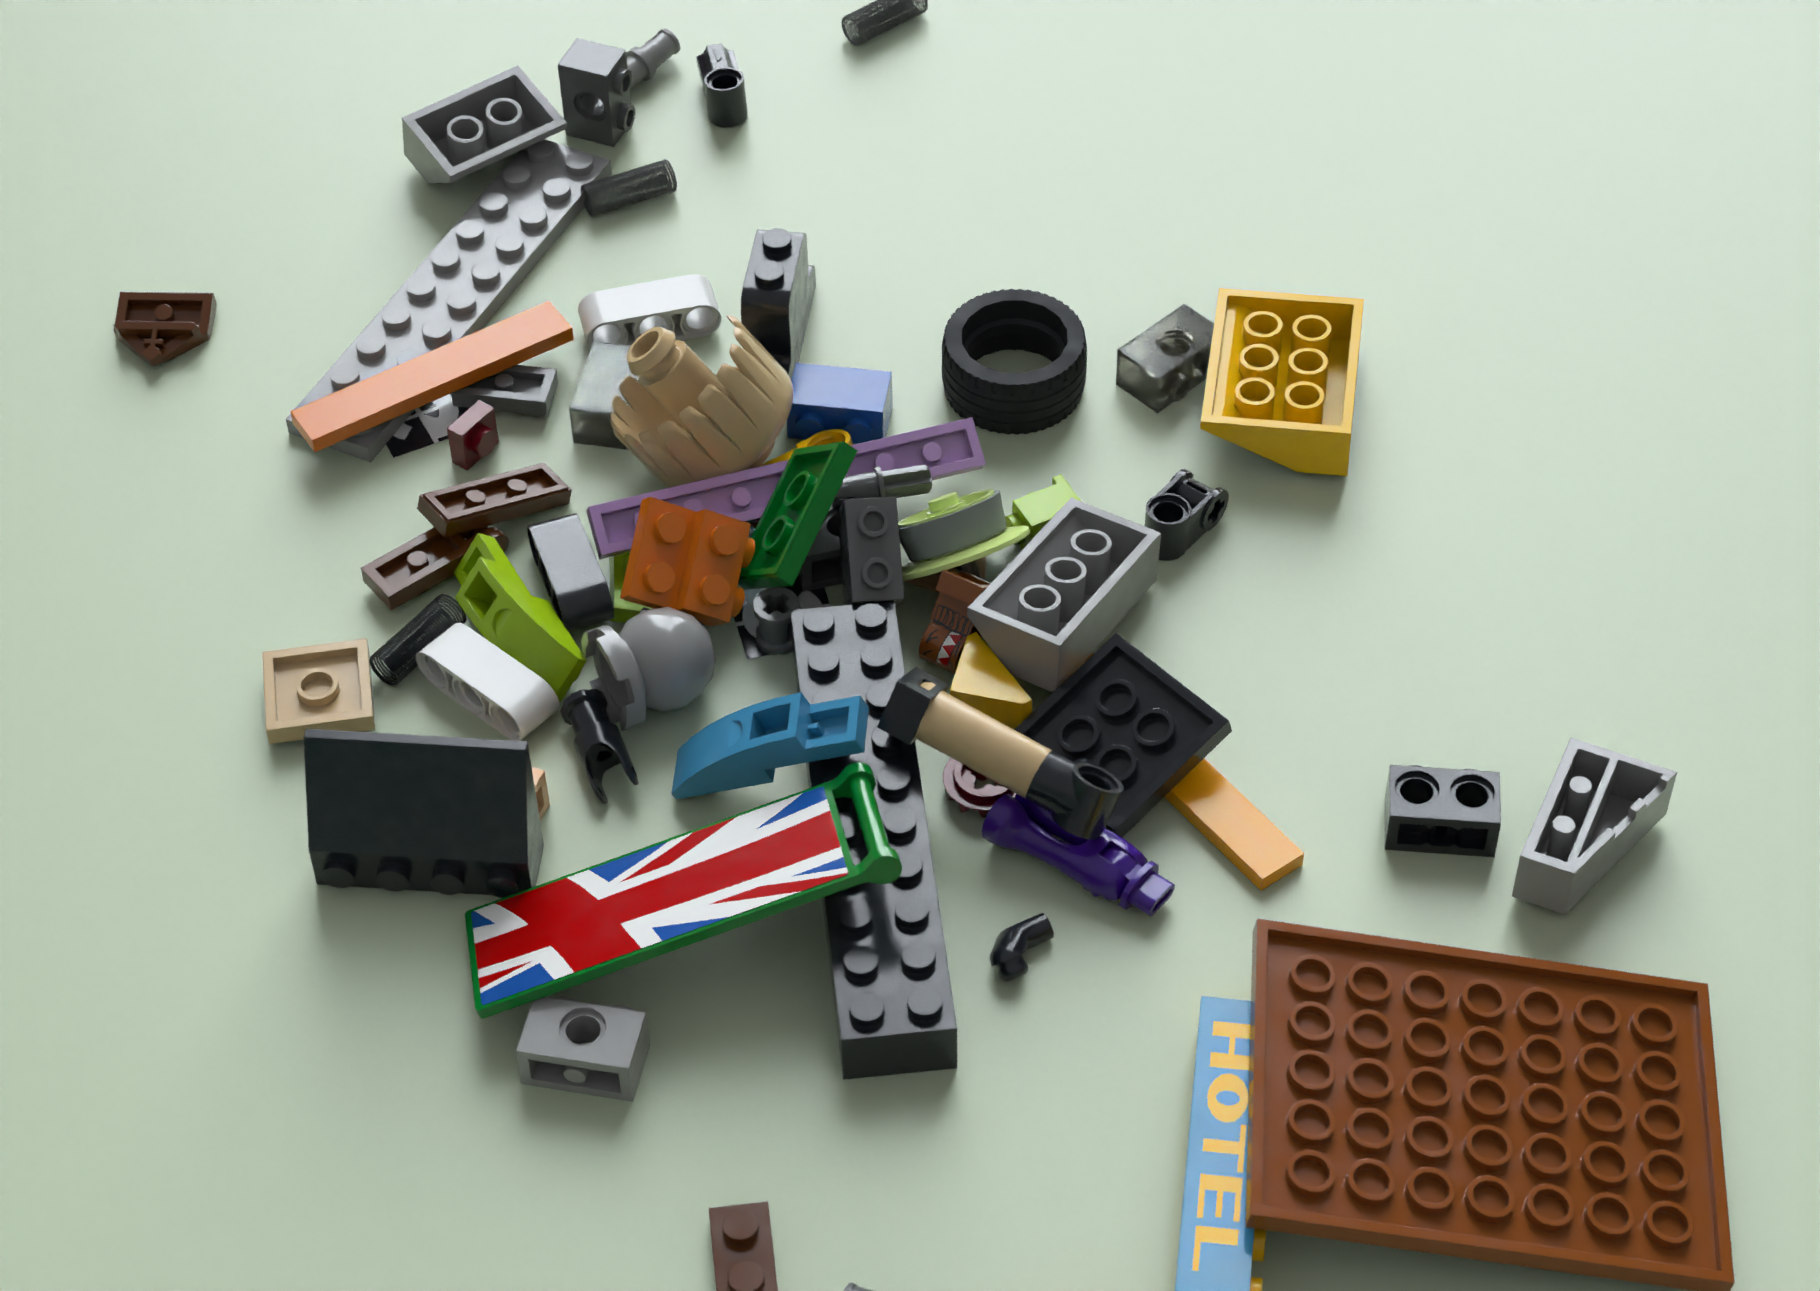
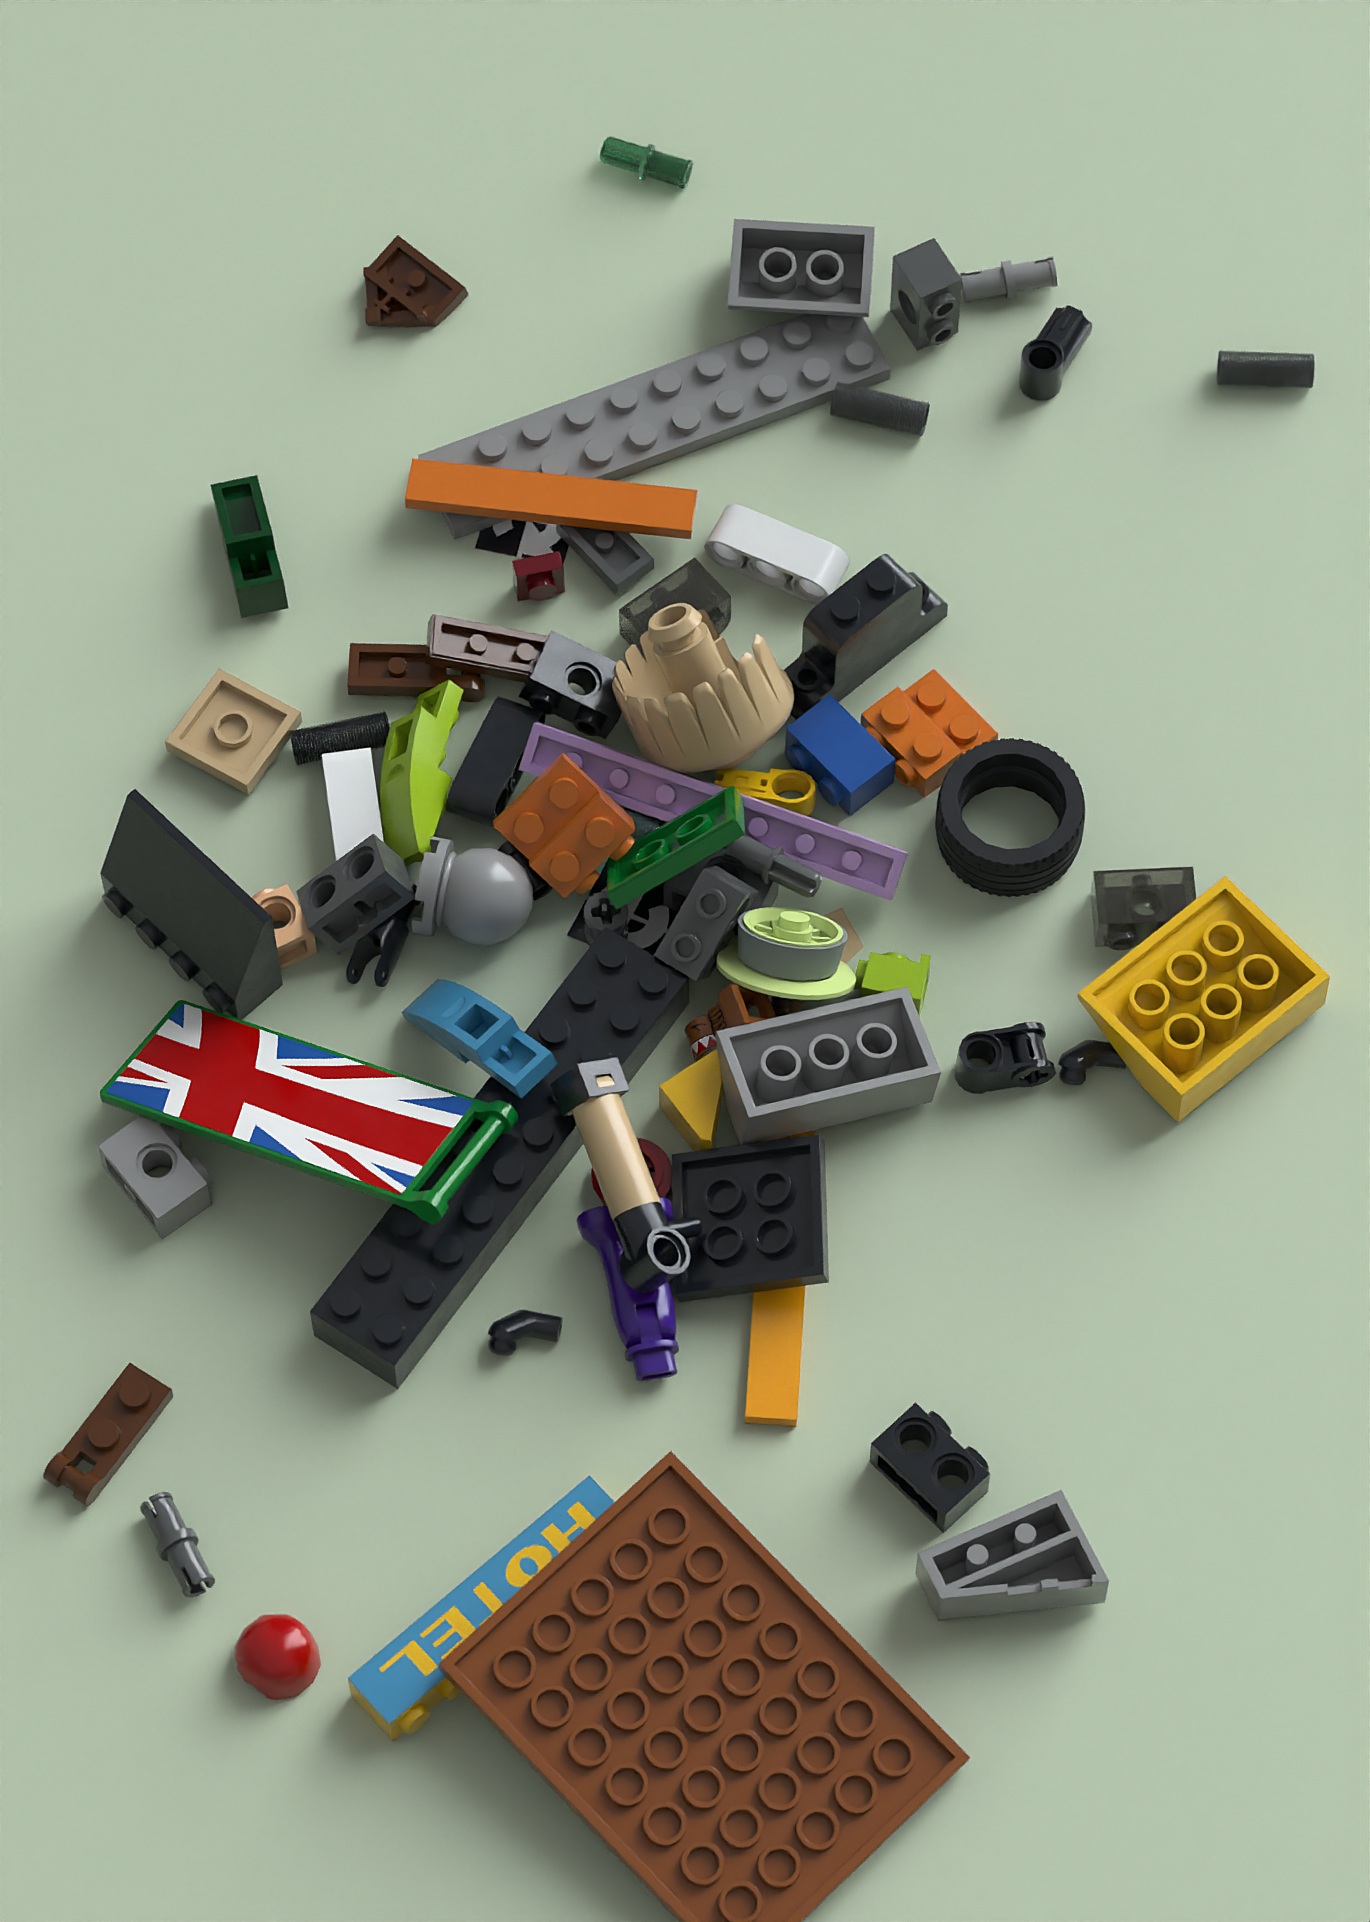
camera: 40 degrees right, 15 degrees up
(202, 559) = (249, 546): none -> dark green slope
(281, 145) = (646, 162): none -> clear green axle
(559, 717) = (355, 894): none -> dark grey brick
(581, 474) = (566, 662): none -> black brick
(891, 345) = (926, 730): none -> orange plate
(1238, 472) = (1084, 1056): none -> black arm

